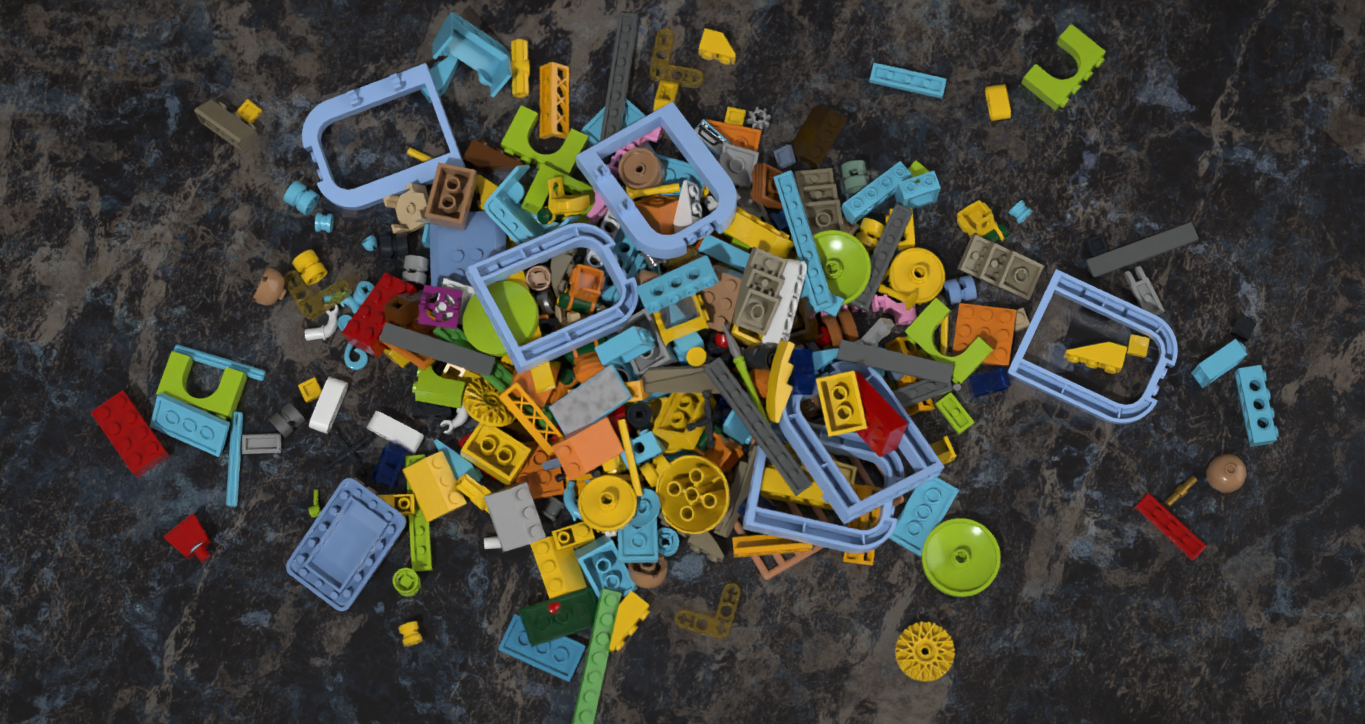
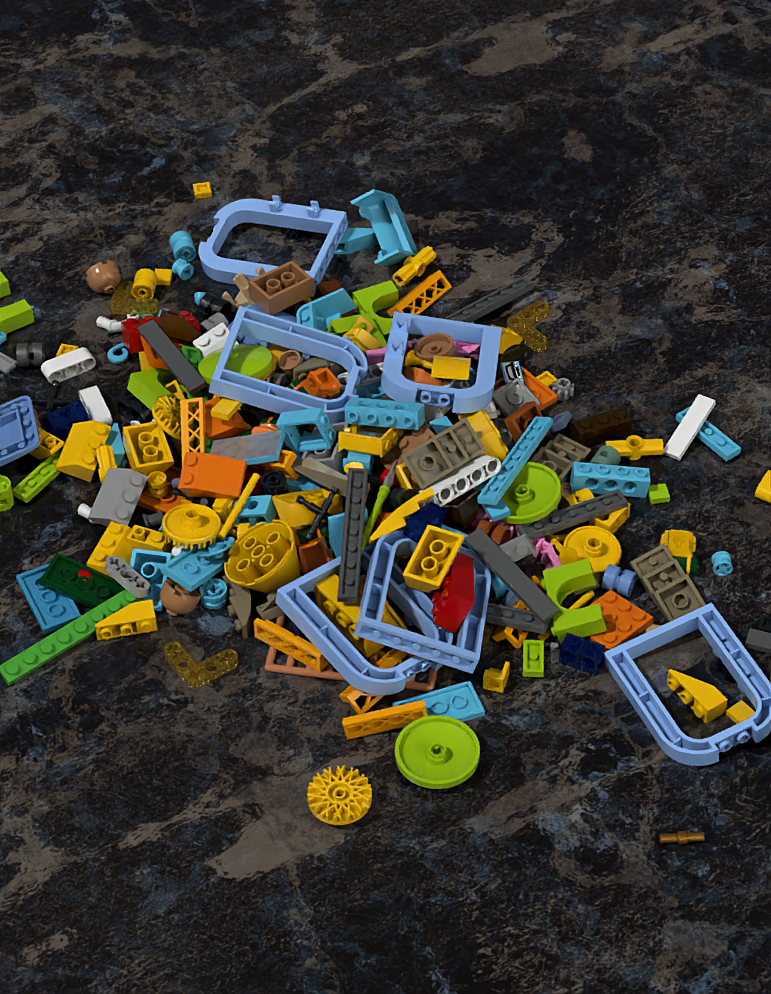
camera: 40 degrees right, 30 degrees down
(220, 362) = (18, 293): medium azure axle -> none
(227, 125) = (178, 183): dark tan slope -> none
(311, 241) = (164, 276): none -> yellow tile
(428, 291) = (189, 324): magenta piece -> none
(531, 473) = (157, 484): none -> yellow wheel
(601, 581) = (137, 585): none -> light grey beam
(678, 186) = (451, 367): none -> yellow slope
(715, 46) = (572, 331): yellow slope -> none
(872, 134) = (635, 447): none -> yellow piece
(892, 88) = (689, 427): none -> white tile
(897, 556) = (383, 719): none -> light orange fence
(918, 194) = (641, 506): medium azure window -> none
(1170, 526) = (648, 858): red tile -> none
(1226, 473) = (737, 851): medium nougat cylinder -> none

